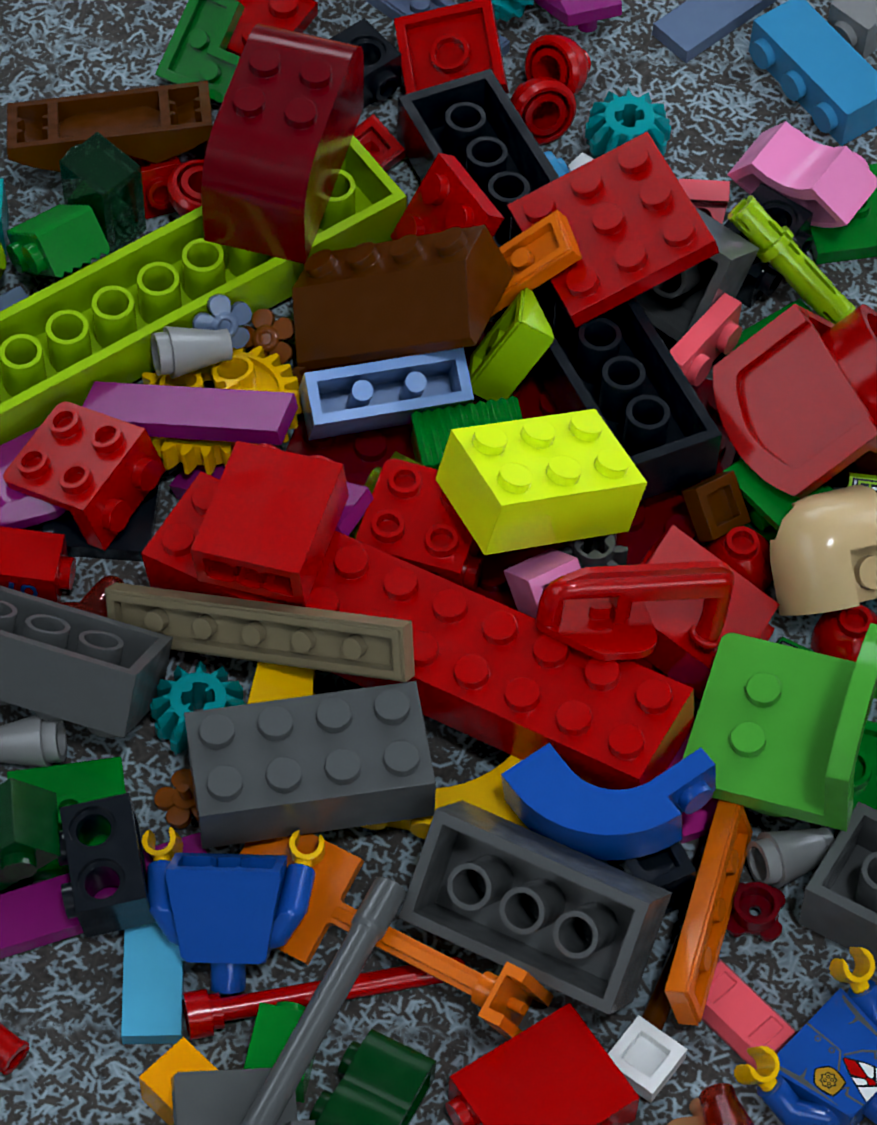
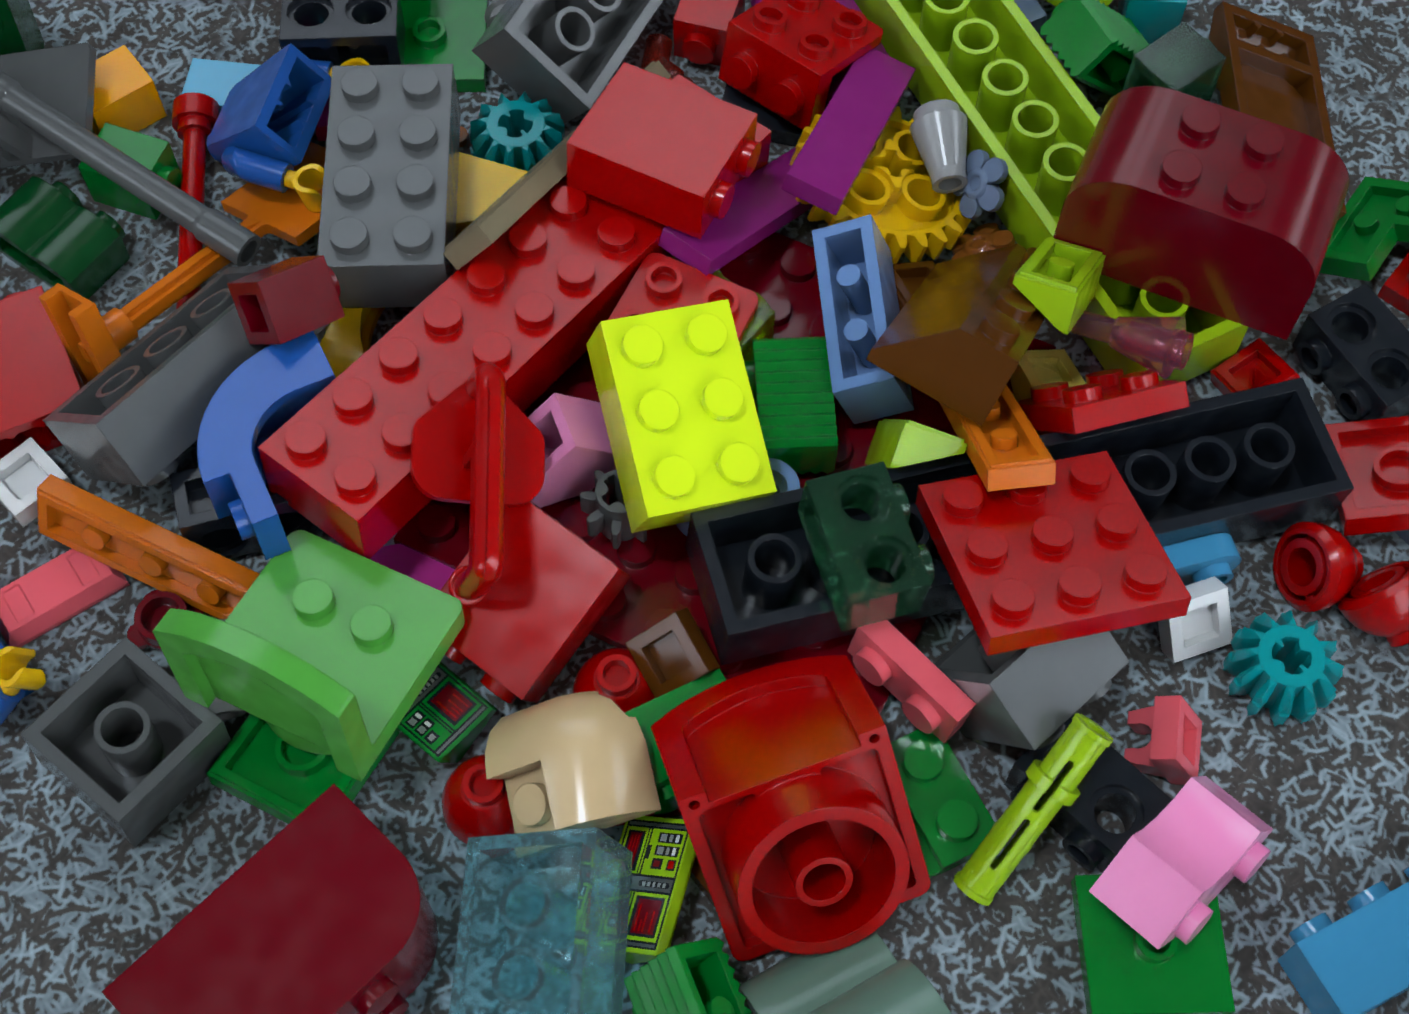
camera: 100 degrees right, 5 degrees up
(361, 227) = (1060, 281): none -> lime slope
(393, 183) = (1149, 341): none -> clear pink cone
(482, 792) = (287, 299): none -> dark red brick
(637, 342) = (850, 546): none -> clear green brick

